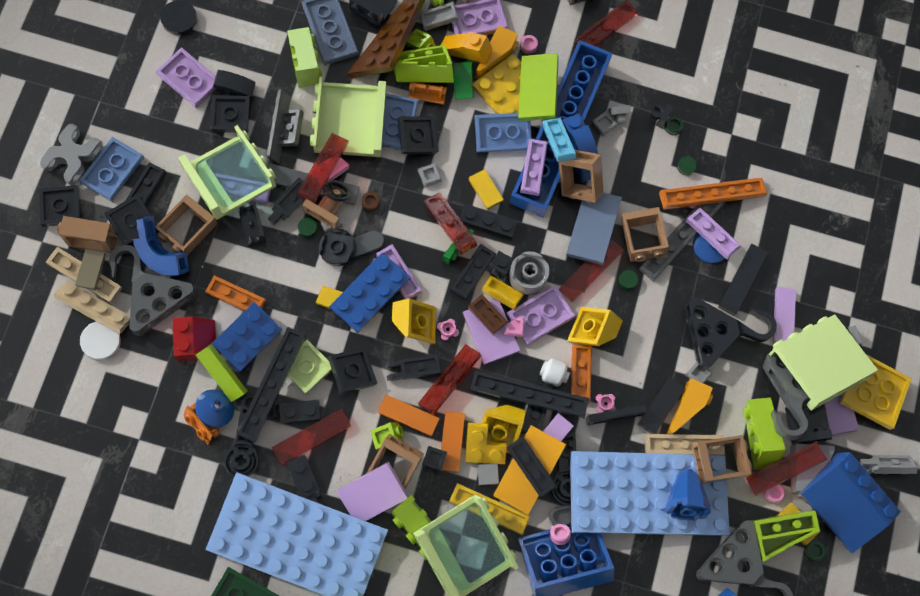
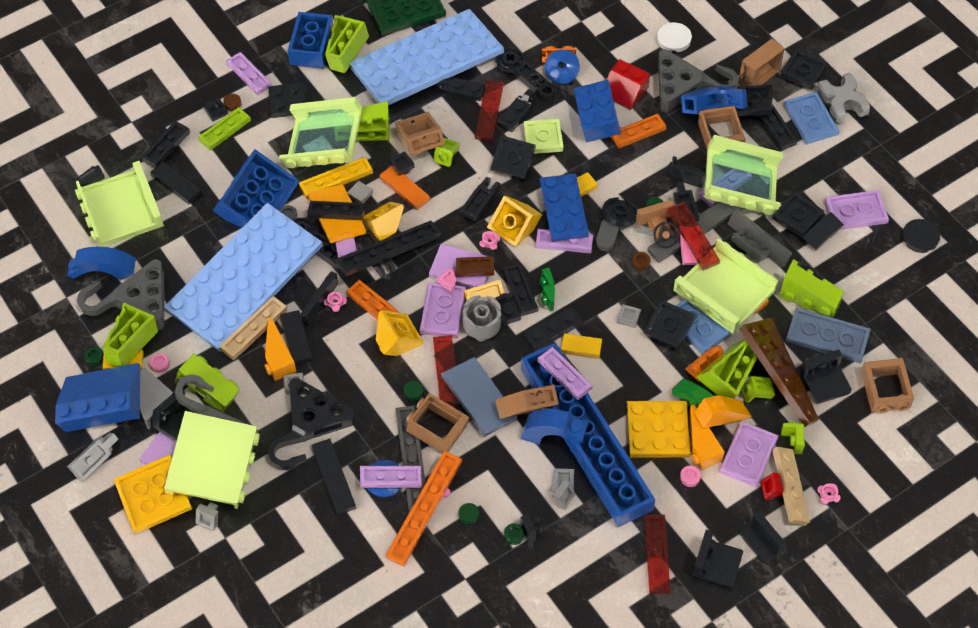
camera: 140 degrees right, 15 degrees down
(70, 267) = (730, 53): tan plate -> none
(90, 269) = (731, 53): dark tan tile -> none
(92, 307) = (704, 43): tan plate -> none
(221, 373) = (579, 81): lime tile -> none
(271, 384) = (547, 102): black plate -> none
(373, 493) = (413, 110): lavender tile -> none
(408, 415) = (449, 174): orange tile -> none
(439, 16) = (773, 421): light grey tile -> none
(449, 379) = (450, 215): clear red tile -> none
(450, 223) = (572, 292): clear red tile -> none
(480, 450) = (382, 195): yellow plate -> none
(501, 132) = (621, 390): medium blue tile -> none
(538, 87) = (636, 435): lime tile -> none
(554, 372) = (389, 280): white head -> none
(559, 140) = (570, 399): medium azure tile -> none
(560, 534) = (276, 200): bright pink tile -> none
(688, 497) = (214, 283): blue cone -> none
(703, 462) = (212, 312): medium nougat window -> none
(784, 313) = (275, 483): lavender tile -> none
(786, 468) = (165, 373): clear red tile -> none

